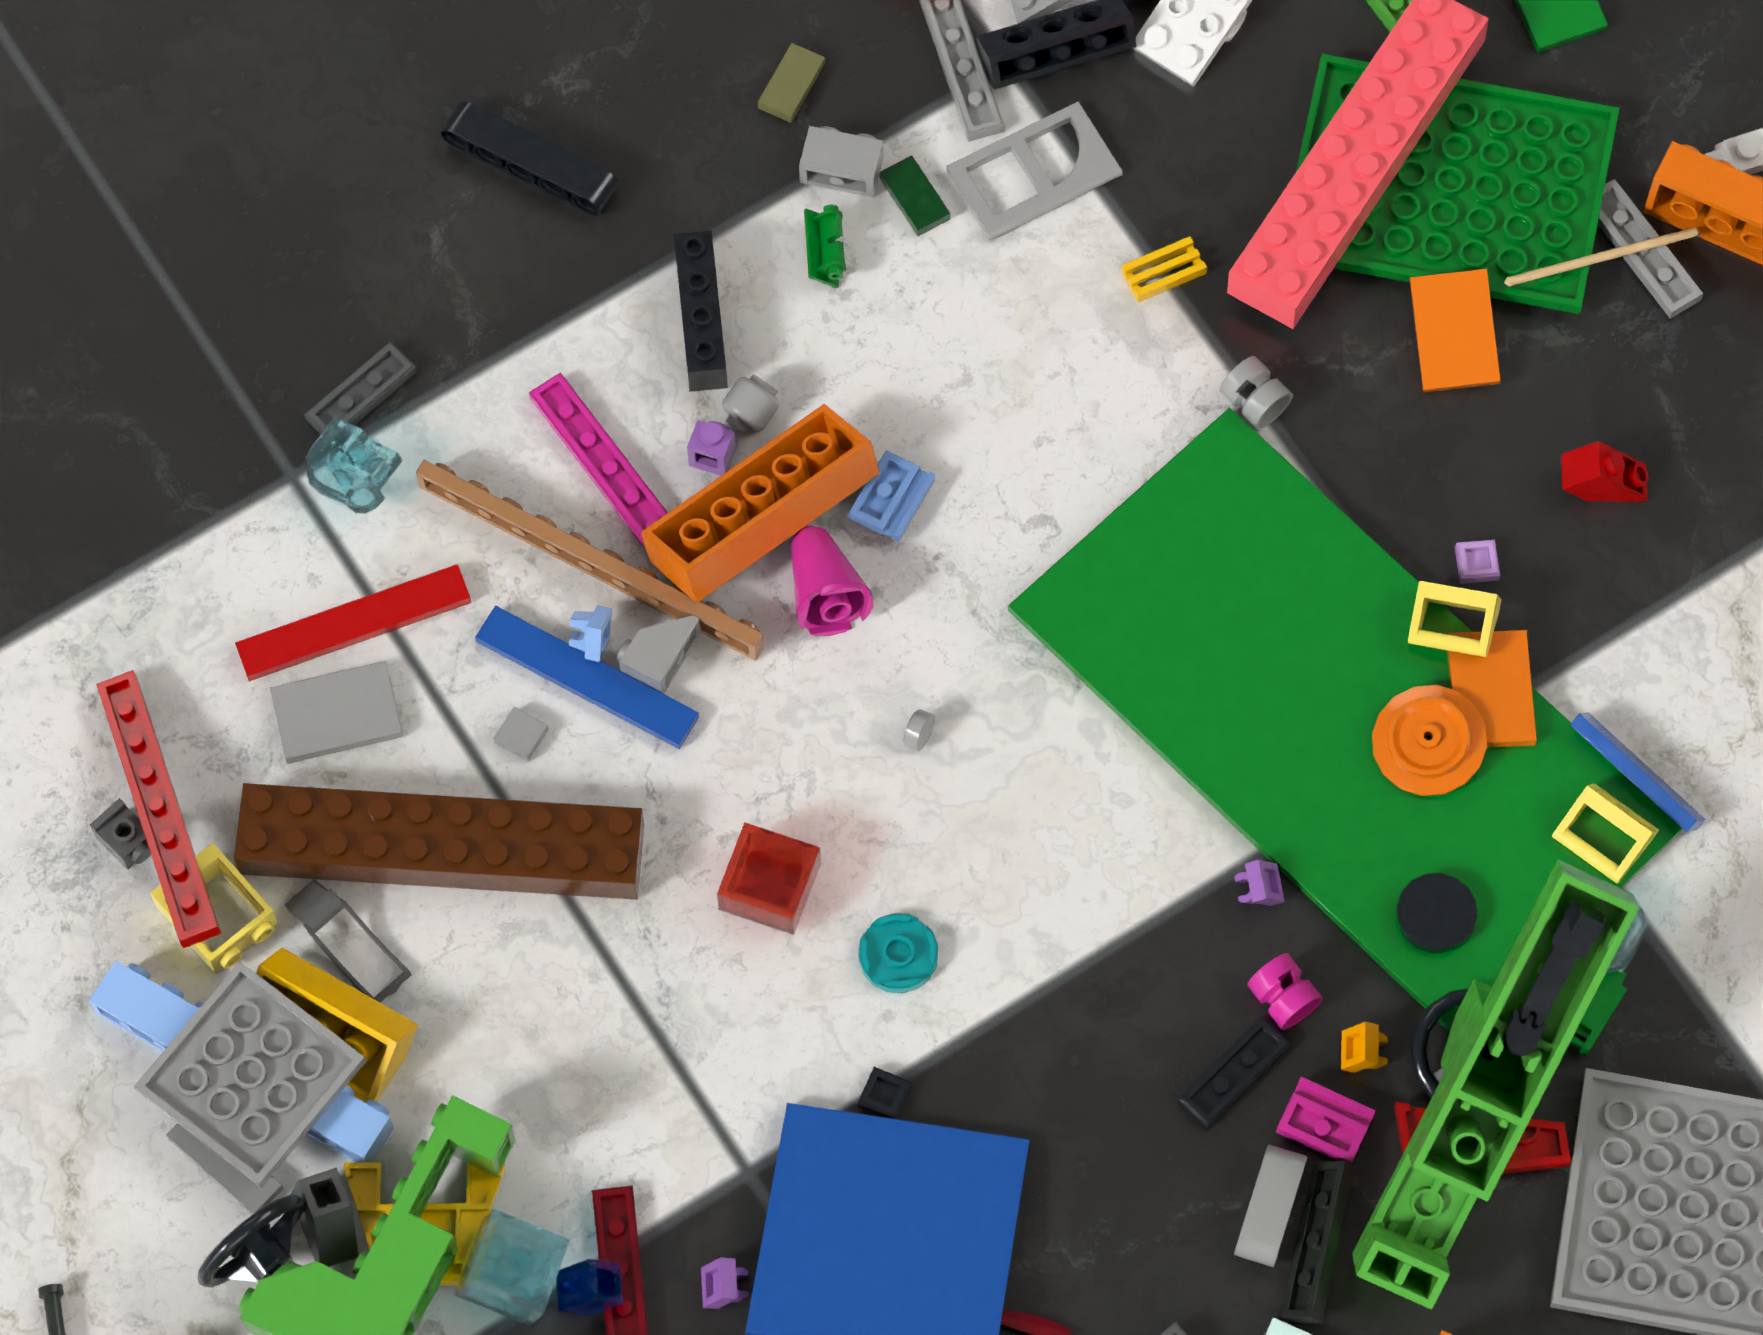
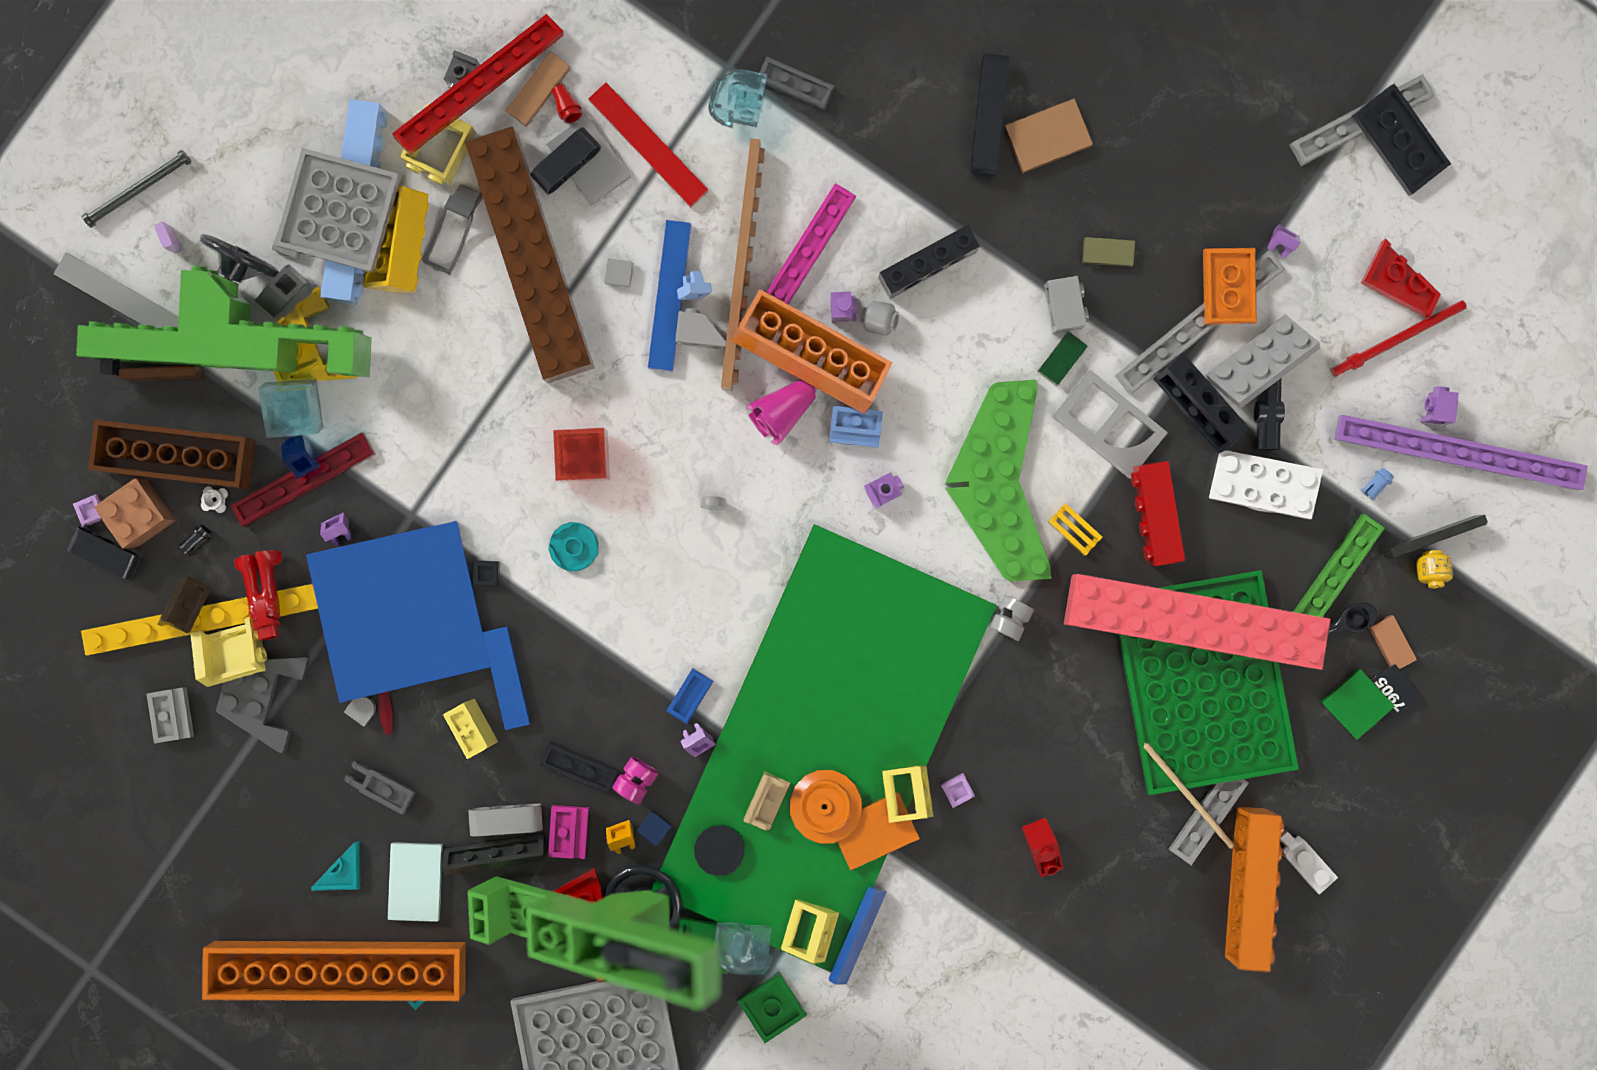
camera: 65 degrees right, 20 degrees up
(198, 742) = (538, 89): none -> medium nougat tile
(242, 709) = (567, 107): none -> red cone
(326, 734) = (565, 160): none -> black beam
(593, 97) = (1048, 136): none -> medium nougat tile
(824, 253) = (1003, 316): green hinge -> none
(996, 504) = (875, 494): none -> medium lavender brick
(1057, 1124) = (506, 678): none -> blue tile
(1072, 356) = (992, 467): none -> bright green wing
(1111, 1201) = (470, 728): none -> light yellow hinge
(1187, 151) = (1158, 513): none -> red brick
(1190, 874) = (690, 695): none -> blue tile
(1368, 999) = (654, 828): none -> dark blue tile
(1387, 818) = (766, 801): none -> tan hinge
(1455, 330) = (1103, 723): orange tile -> none
(1702, 936) = (772, 1007): none -> green tile

